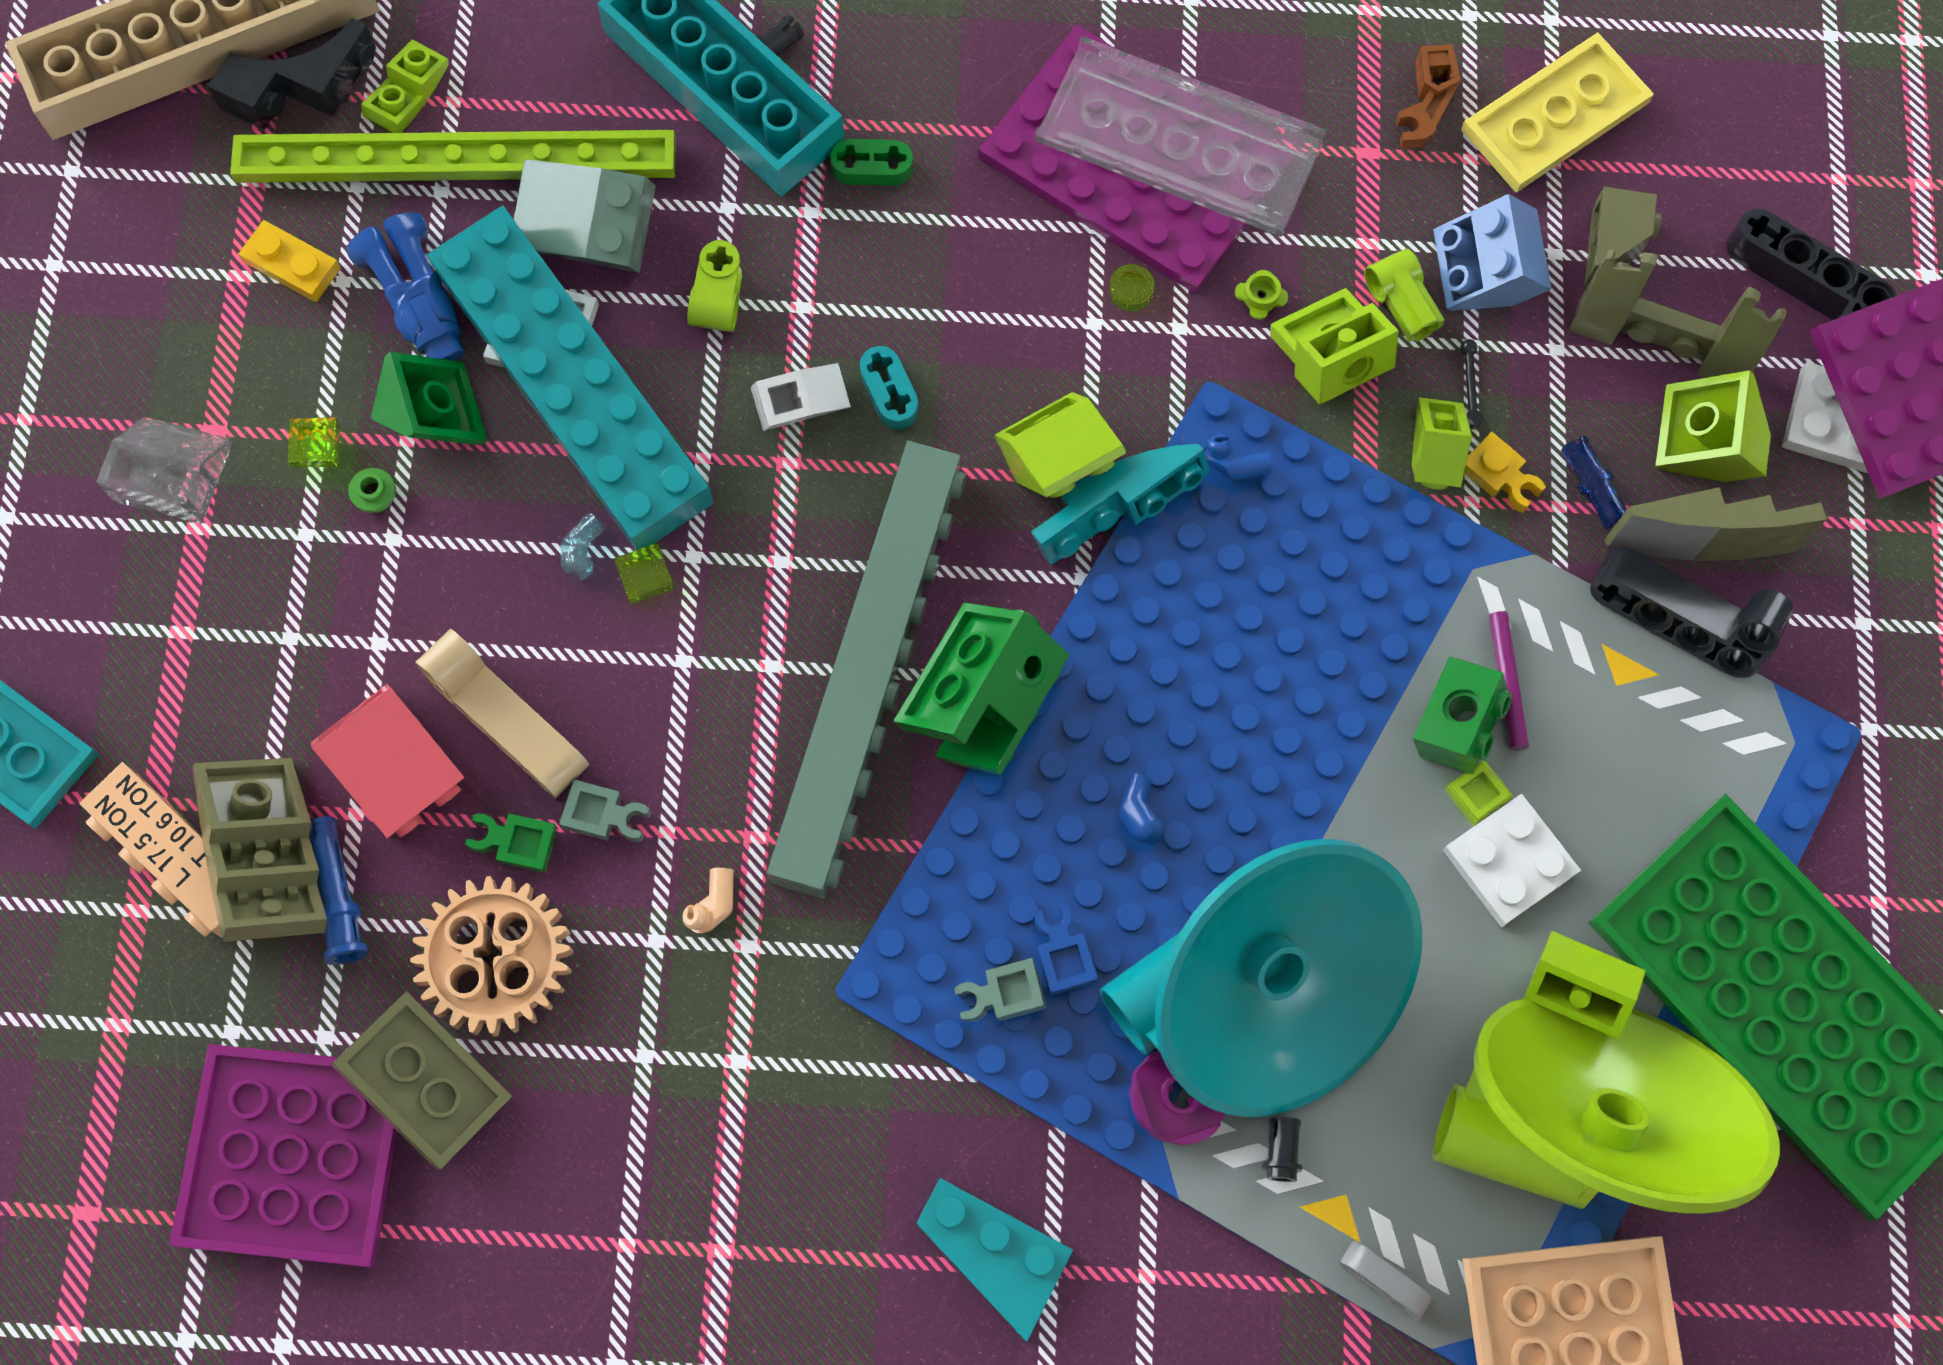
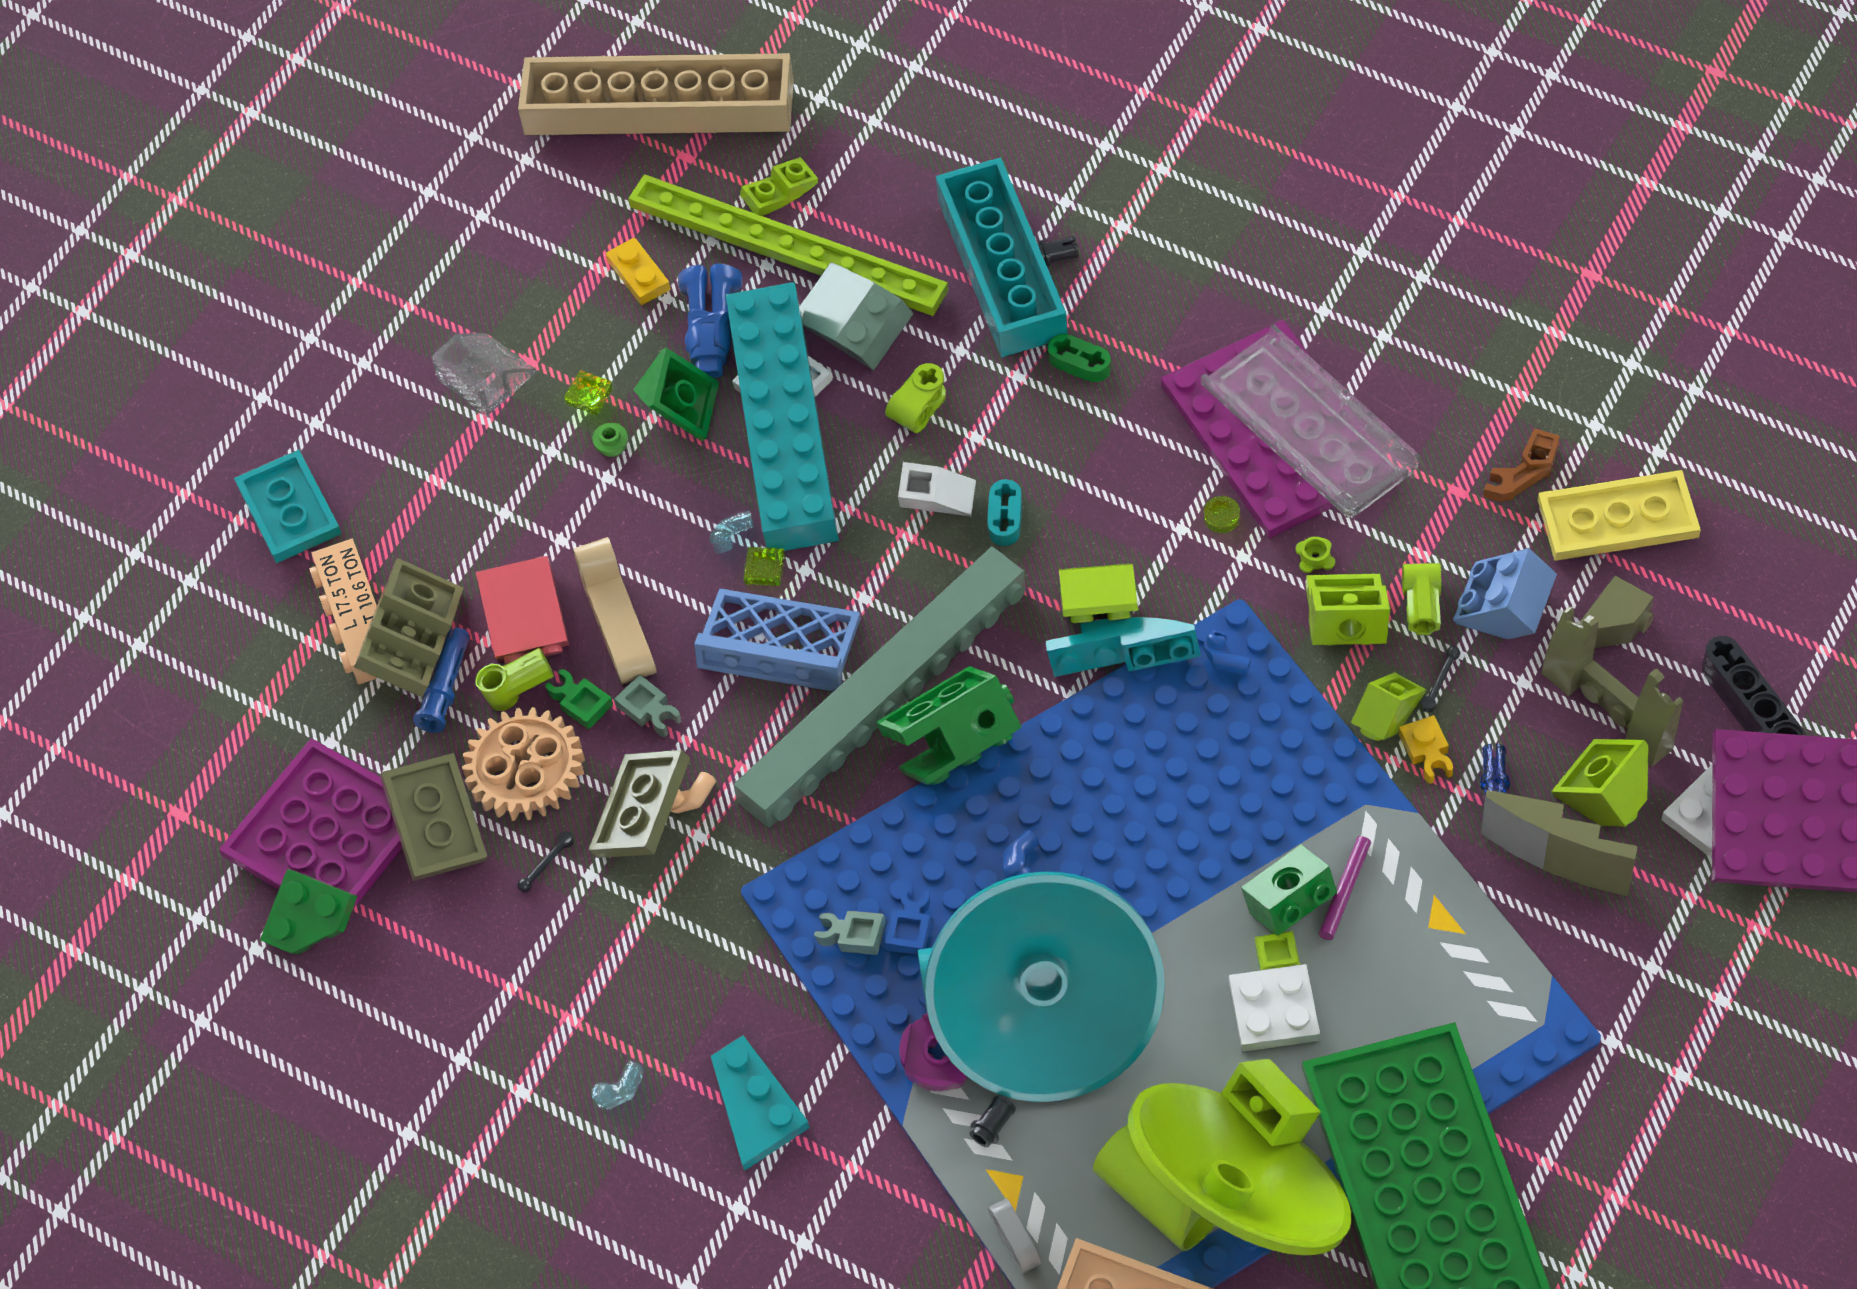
camera: 35 degrees right, 15 degrees down
(320, 78) = (722, 159): black arch -> none
(327, 1278) = (306, 913): none -> green plate
(426, 849) = (504, 683): none -> lime piece
(592, 1026) = (565, 841): none -> black hinge
(664, 947) = (639, 804): none -> olive plate
(717, 694) = (770, 659): none -> medium blue fence
(832, 1317) = (612, 1095): none -> clear light blue arm
(1689, 615) = (1522, 917): black beam -> none

